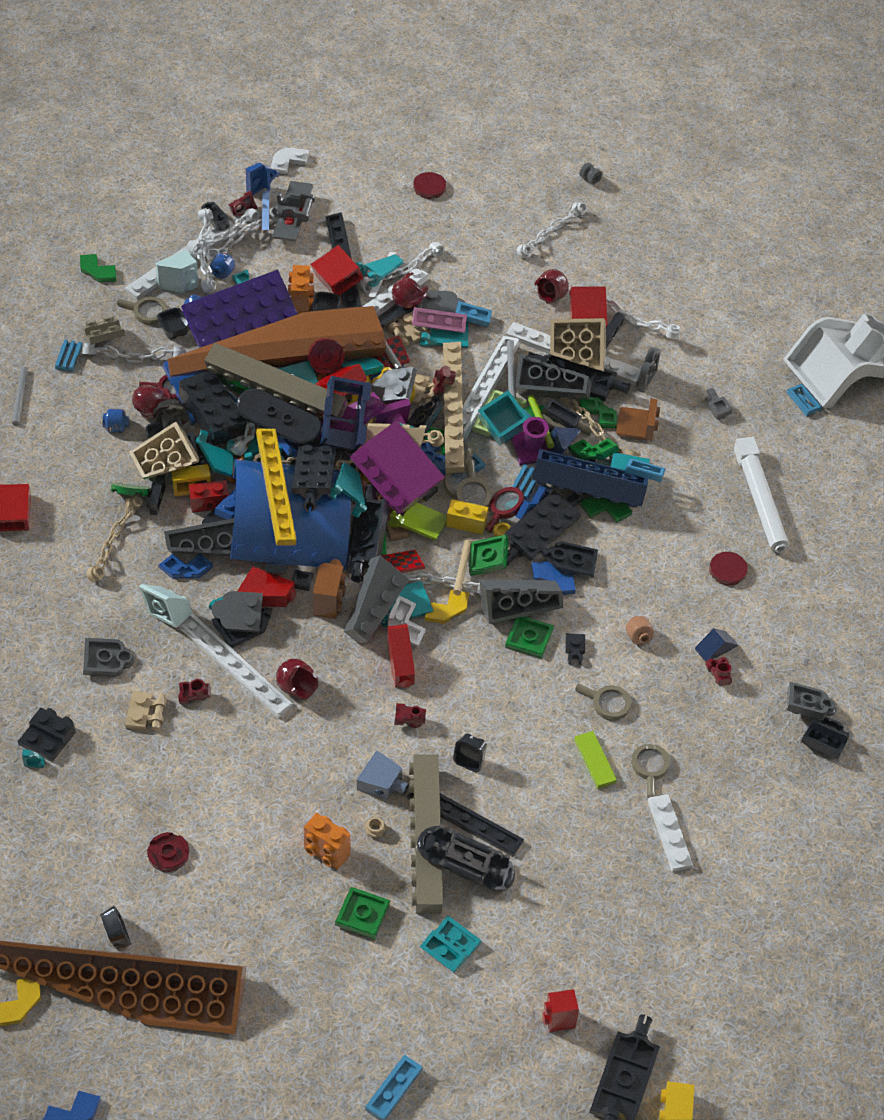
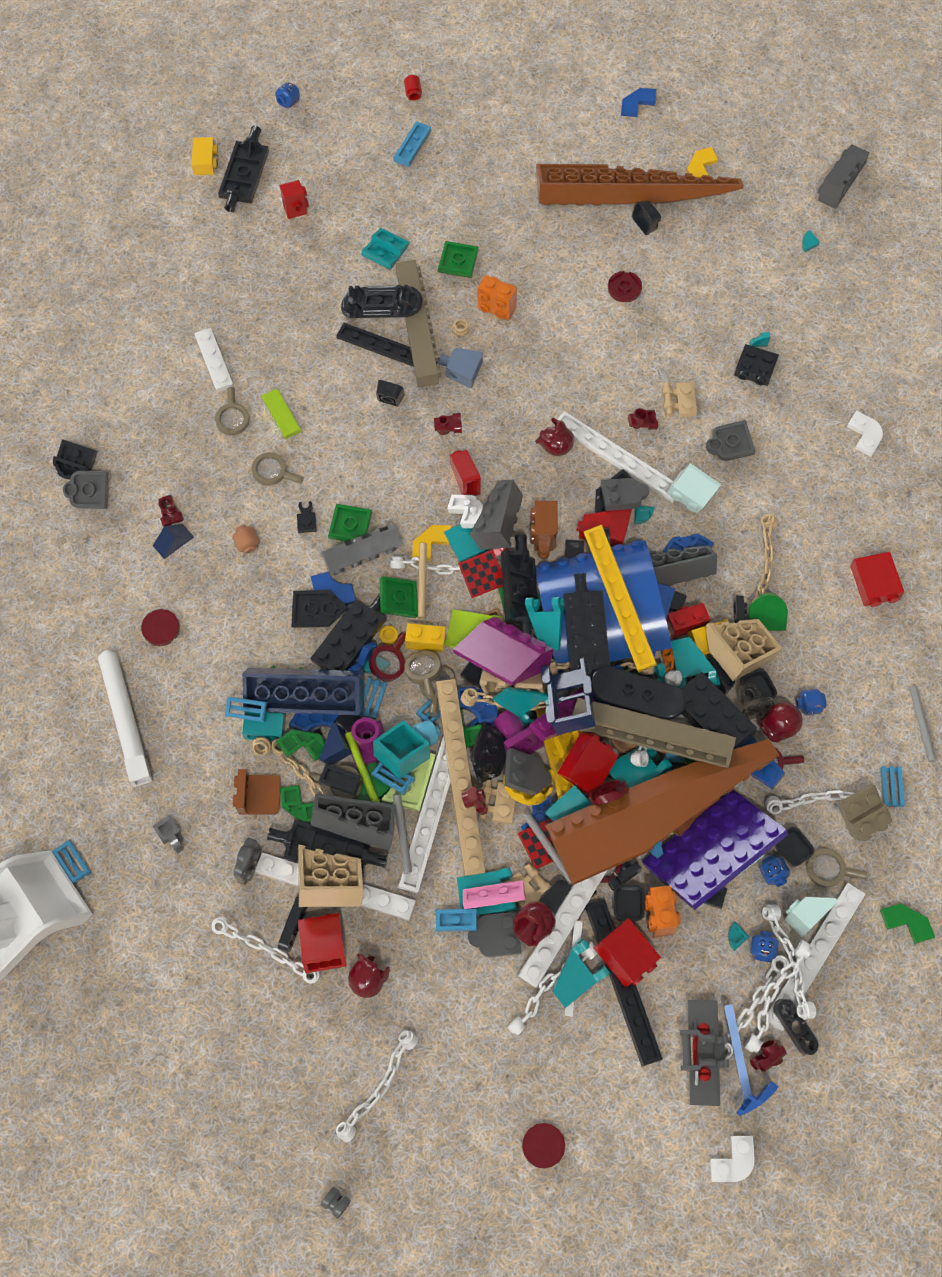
camera: 175 degrees right, 15 degrees up
(480, 442) = (428, 731): none -> medium azure head

